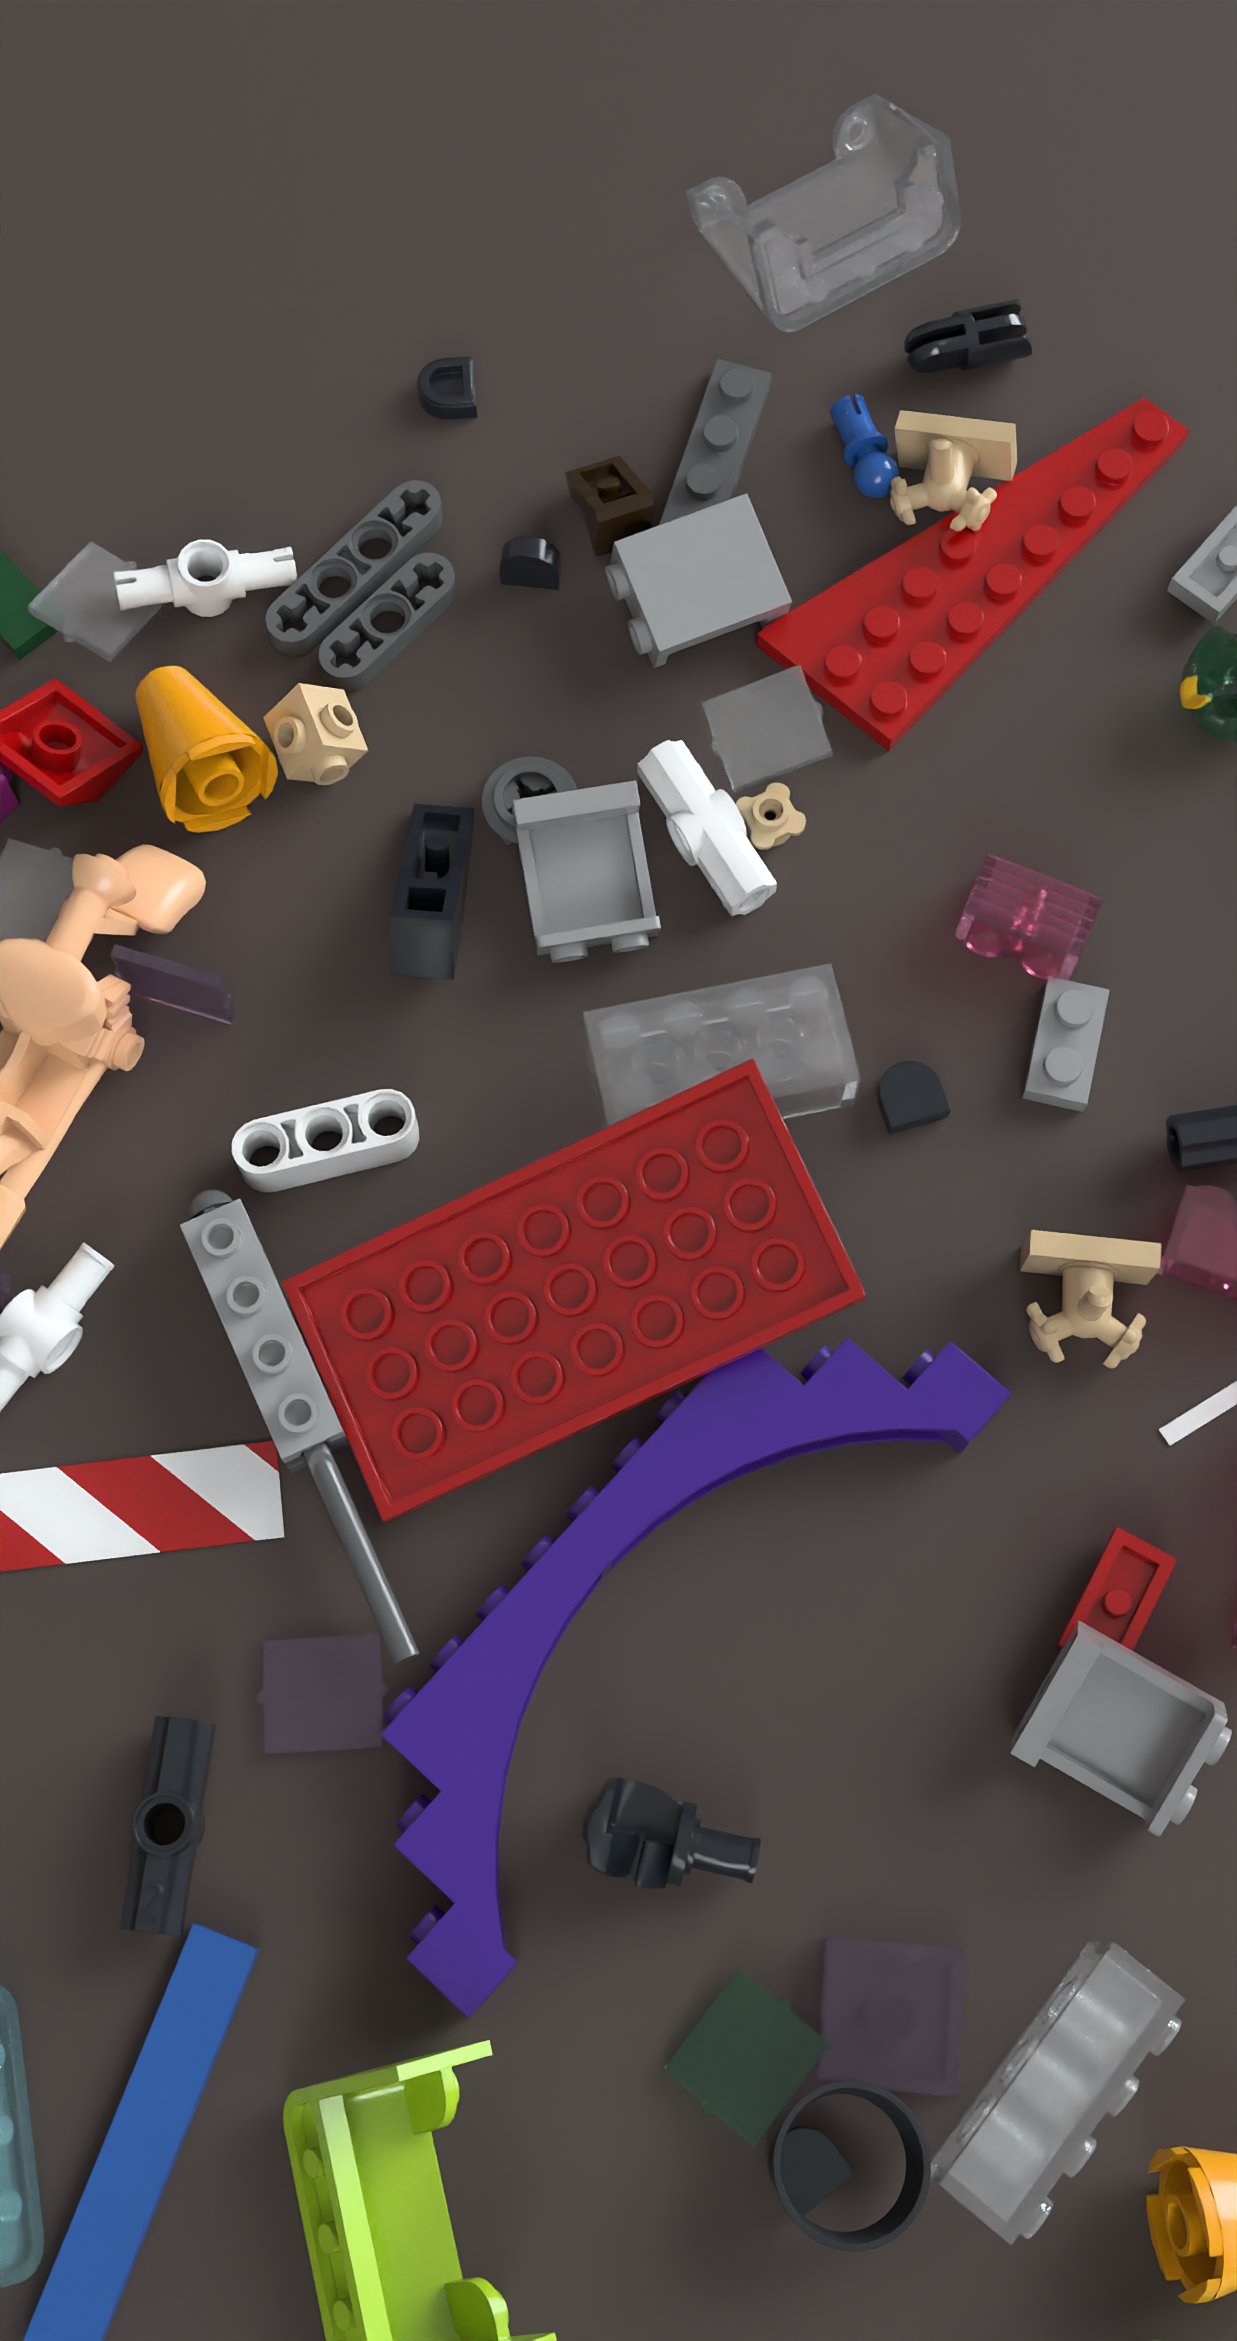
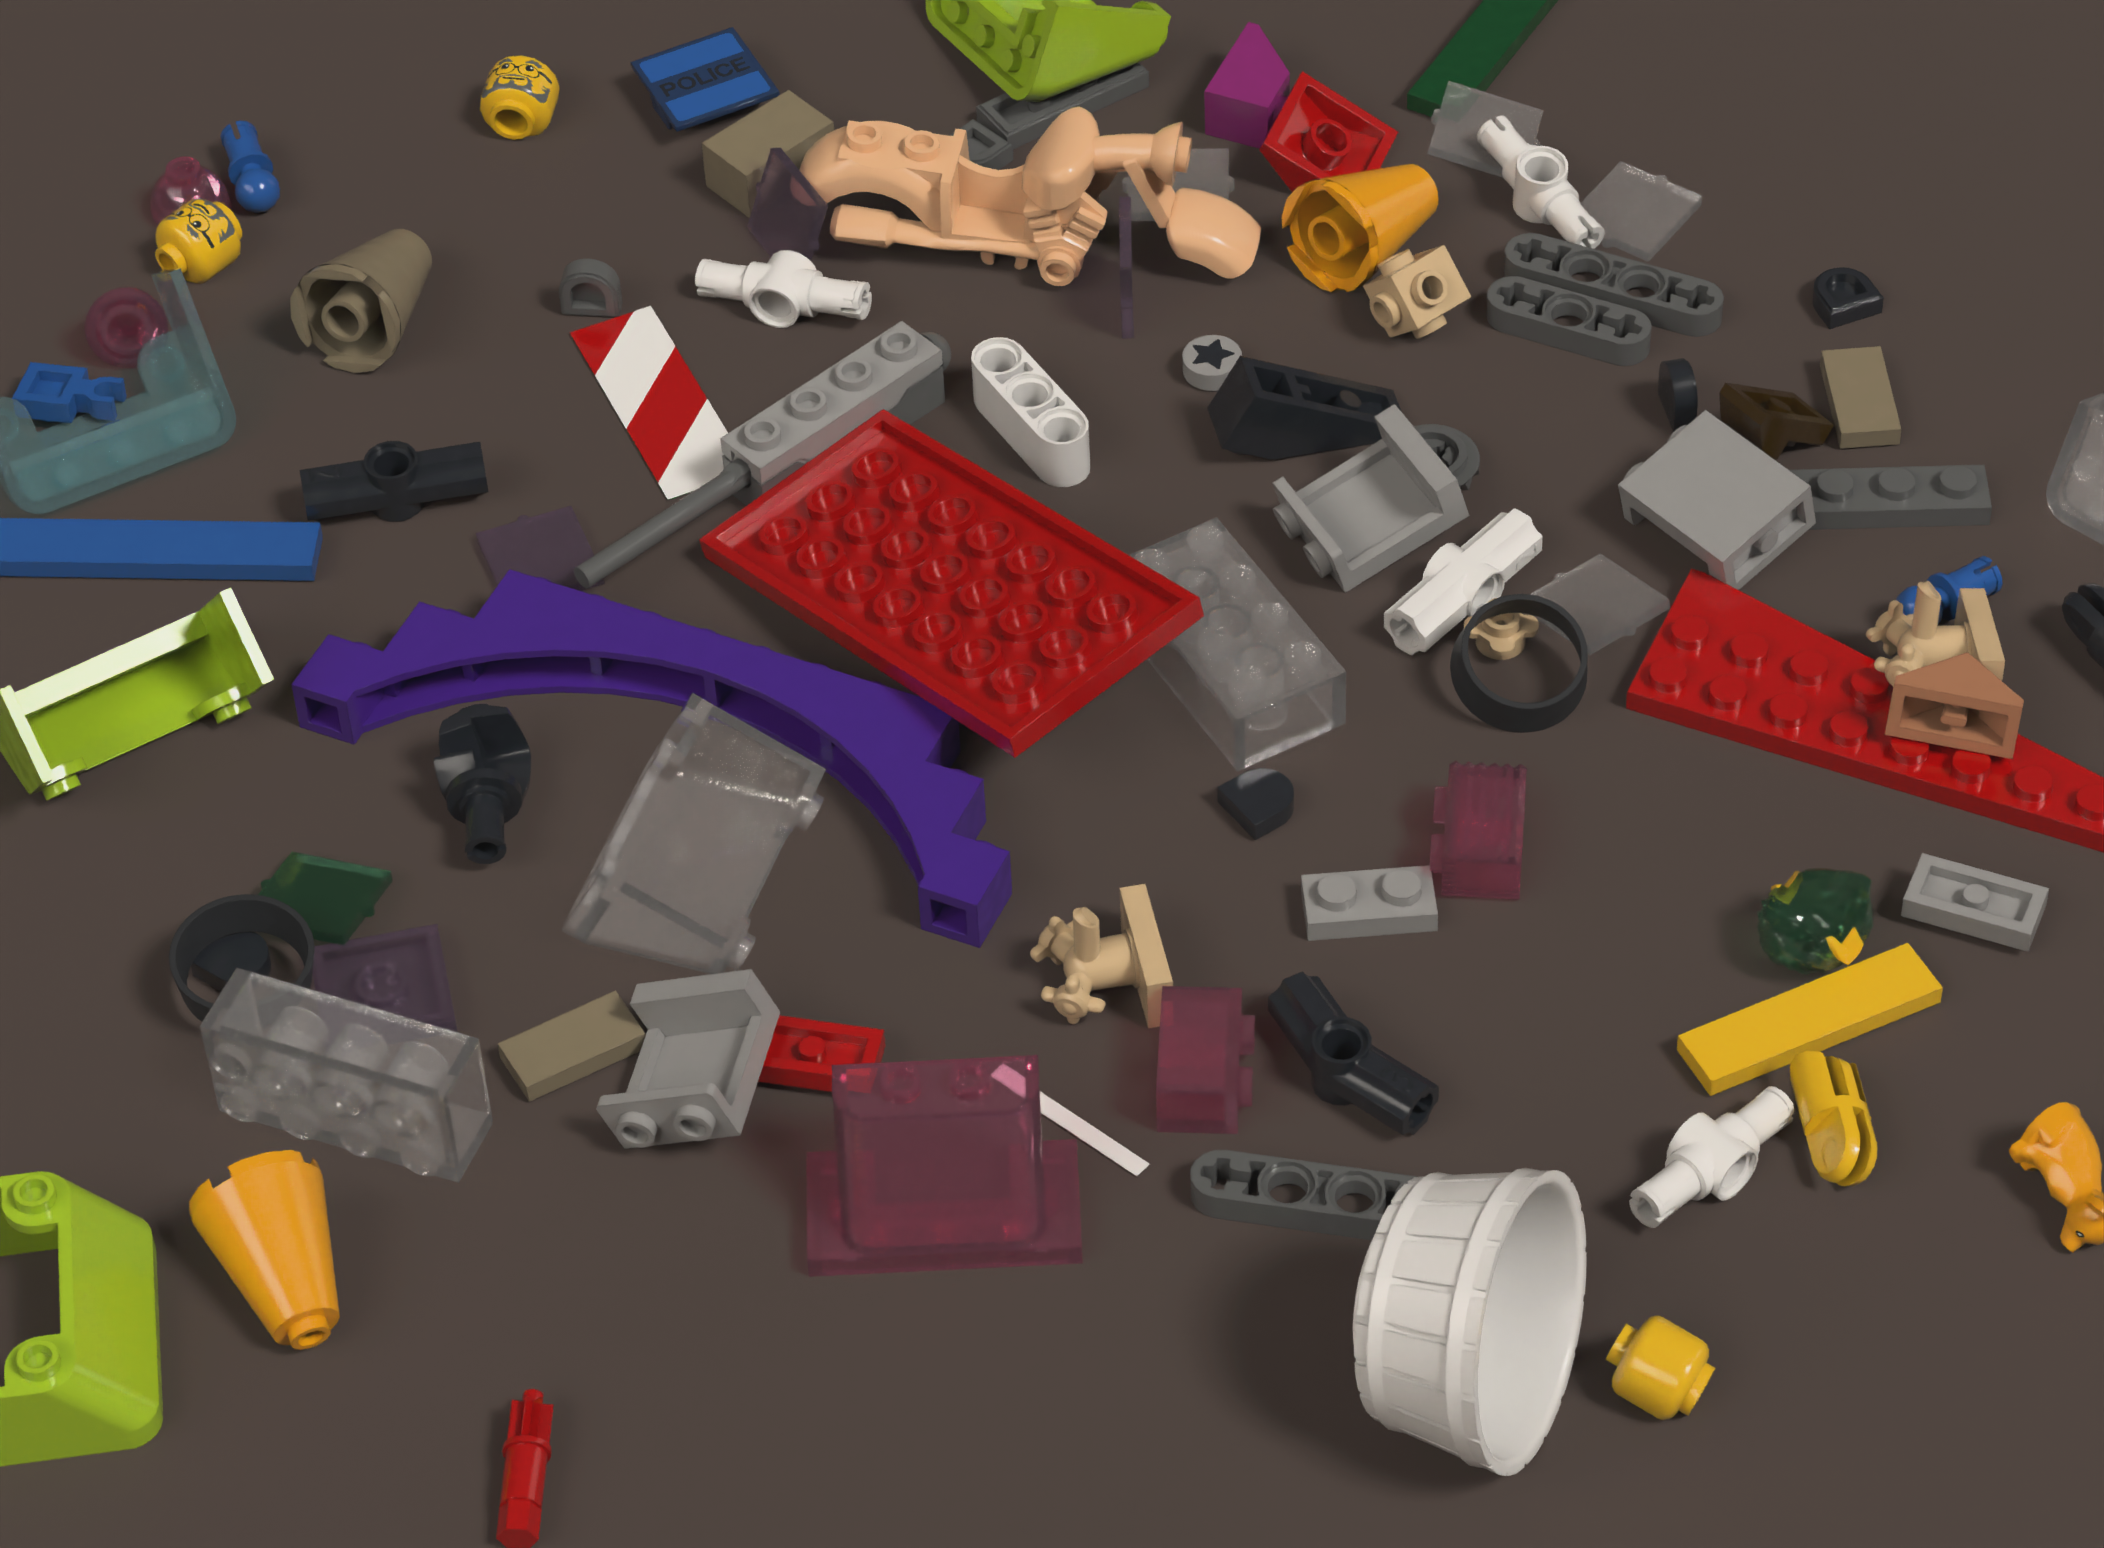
camera: 75 degrees right, 25 degrees down
(256, 510) = (1639, 210): none -> clear piece
(311, 951) = (1209, 361): none -> light grey tile
(585, 422) = (1860, 397): none -> dark tan tile
(798, 841) = (1509, 714): none -> black tyre
(823, 1657) = (696, 843): none -> clear windscreen
(1024, 1837) = (572, 1045): none -> dark tan tile
(1037, 479) = (1956, 707): none -> nougat slope

